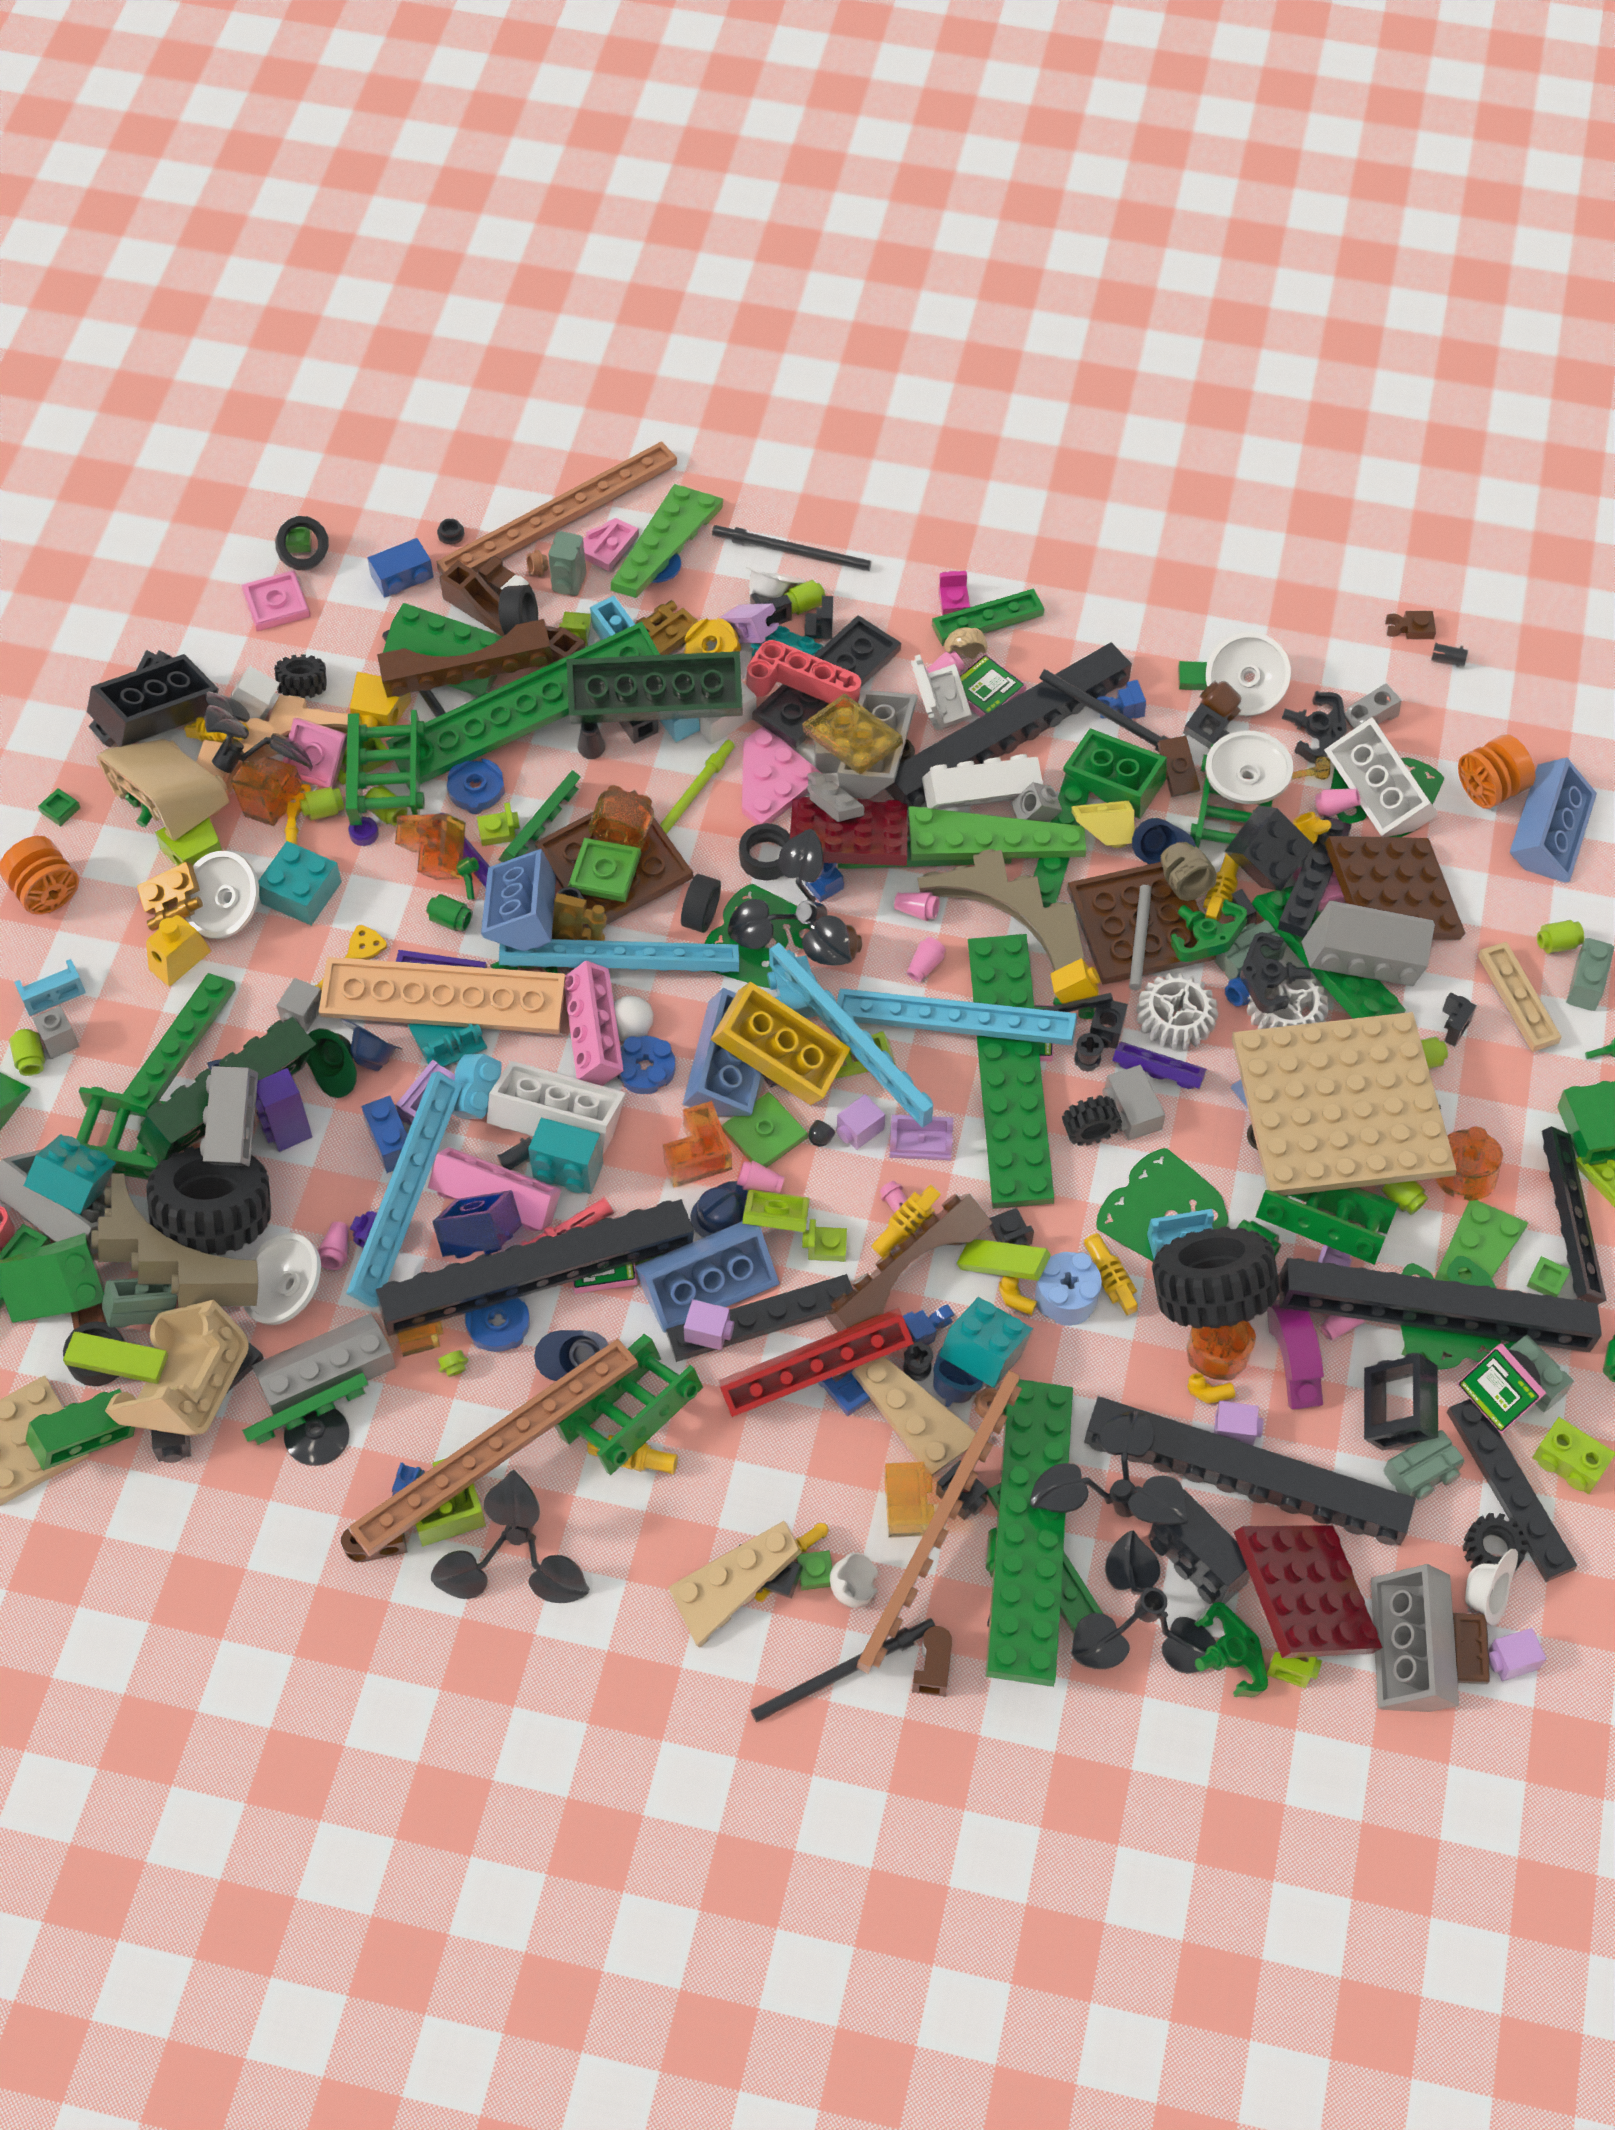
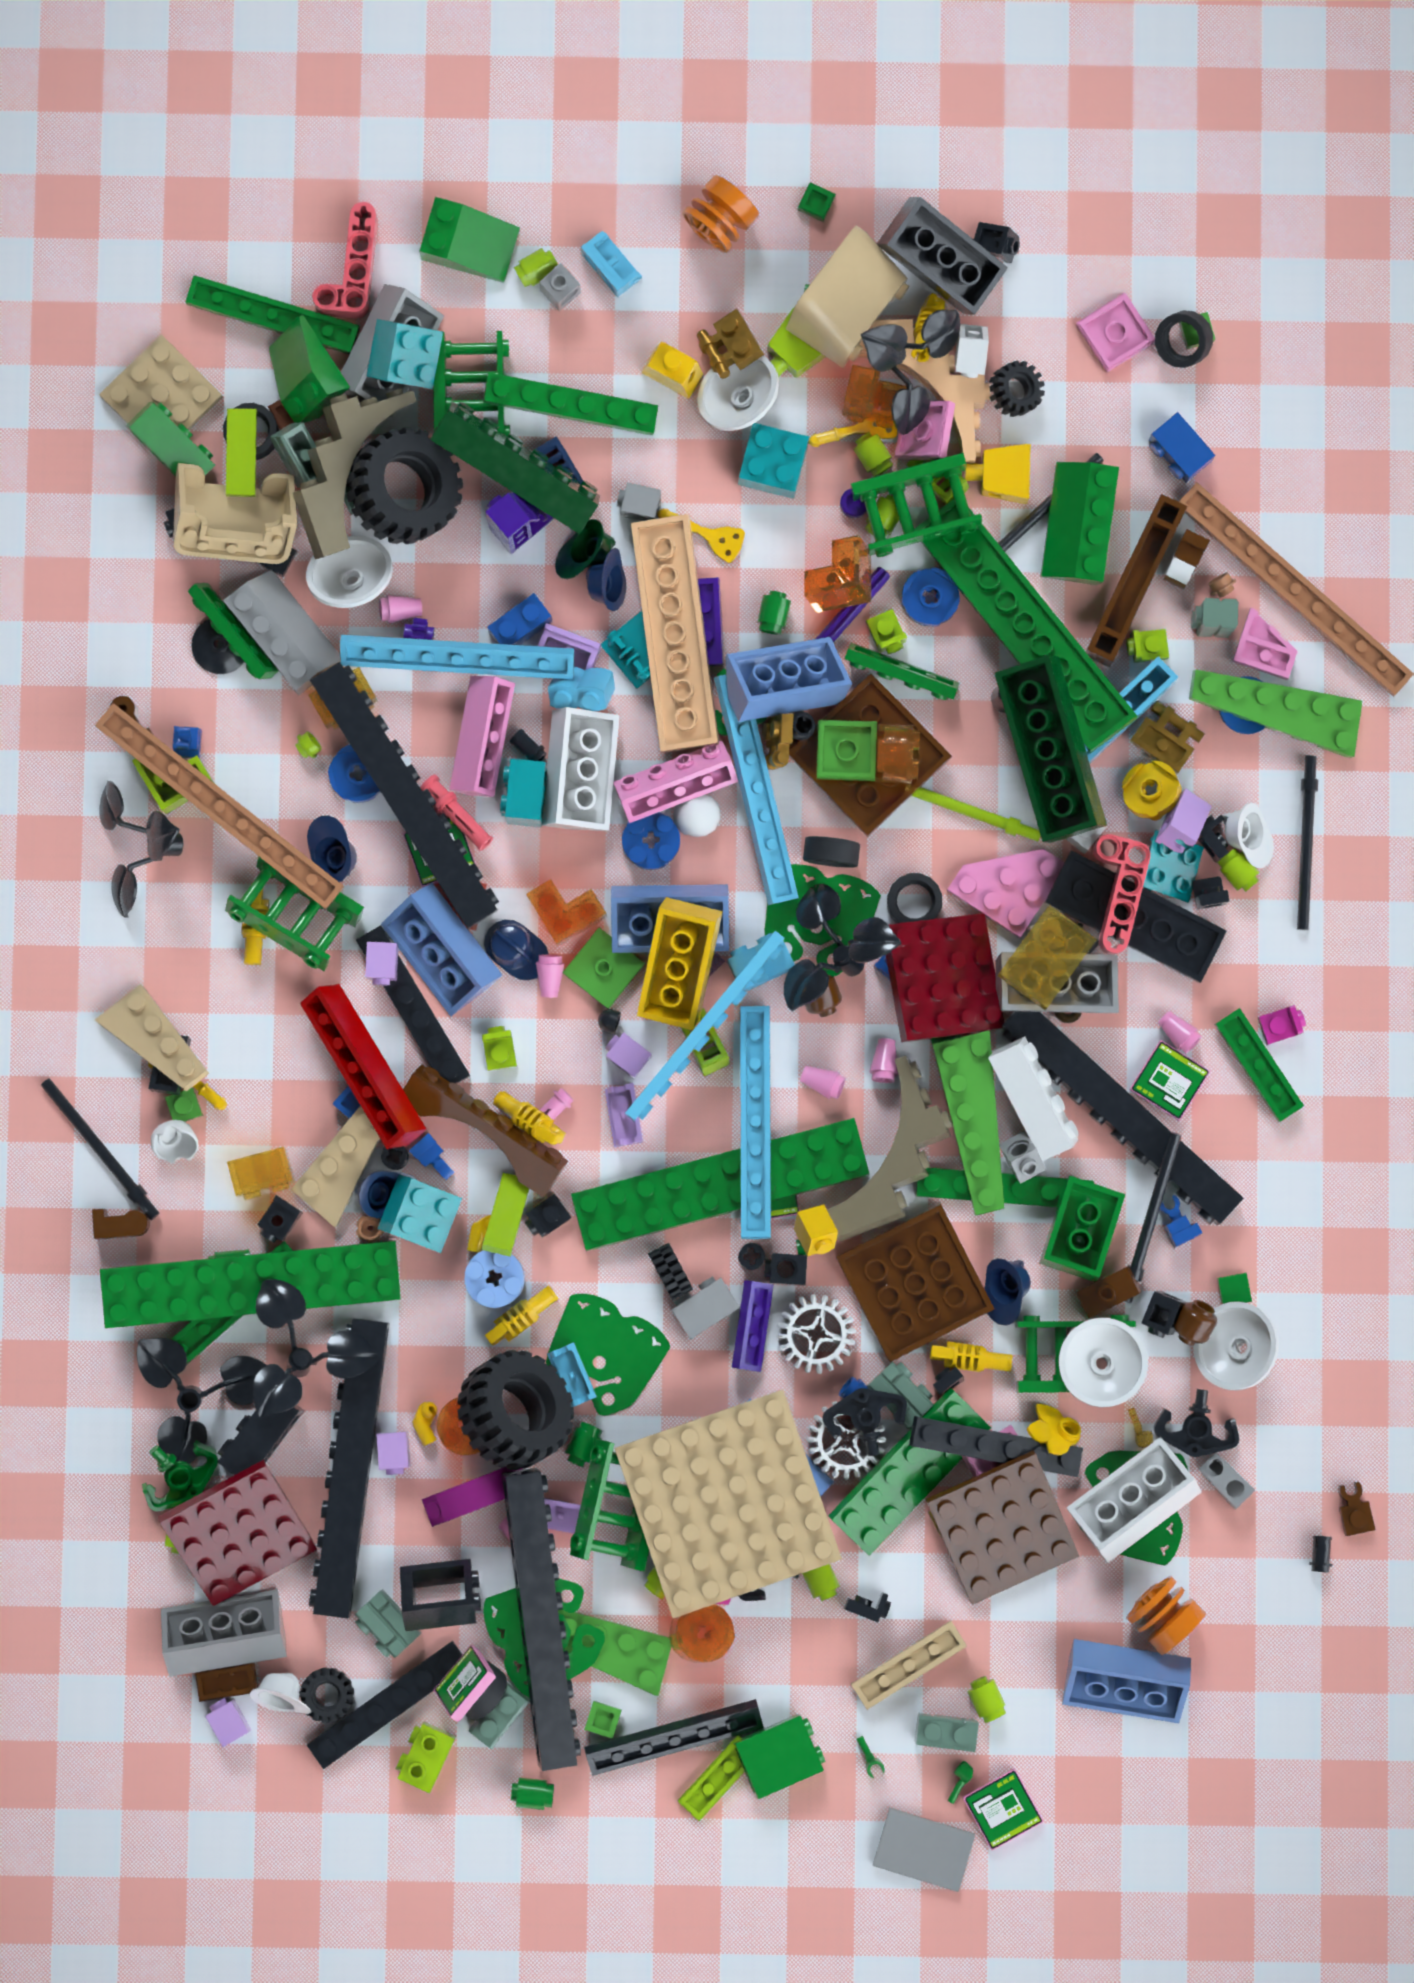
camera: 75 degrees right, 25 degrees up
(229, 1116) = (467, 483): light grey brick -> none
(410, 672) = (1083, 603): reddish brown arch -> none
(450, 531) = (1244, 485): black plate -> none
(465, 869) = (824, 615): green hand -> none
(477, 1224) = (434, 731): clear blue brick -> none
(516, 607) = (1130, 586): black tyre -> none
(776, 1210) = (513, 997): lime tile -> none
(833, 798) = (979, 953): light grey hinge -> none
(935, 1533) = (247, 1209): nougat plate -> none
(942, 694) = (1135, 1035): white plate -> none
(966, 642) = (1213, 1047): tan hair -> none
(1092, 1002) = (788, 1219): black piece -> none
(1108, 822) = (1016, 1228): light yellow slope -> none
(1140, 937) = (889, 1285): light grey bar -> none
(1187, 871) = (967, 1317): dark tan helmet -> none
(1210, 934) = (900, 1355): green piece -> none
(1269, 848) = (1009, 1396): black brick -> none
(1336, 801) = (1099, 1457): bright pink cone -> none
(1369, 943) = (912, 1509): light grey slope -> none

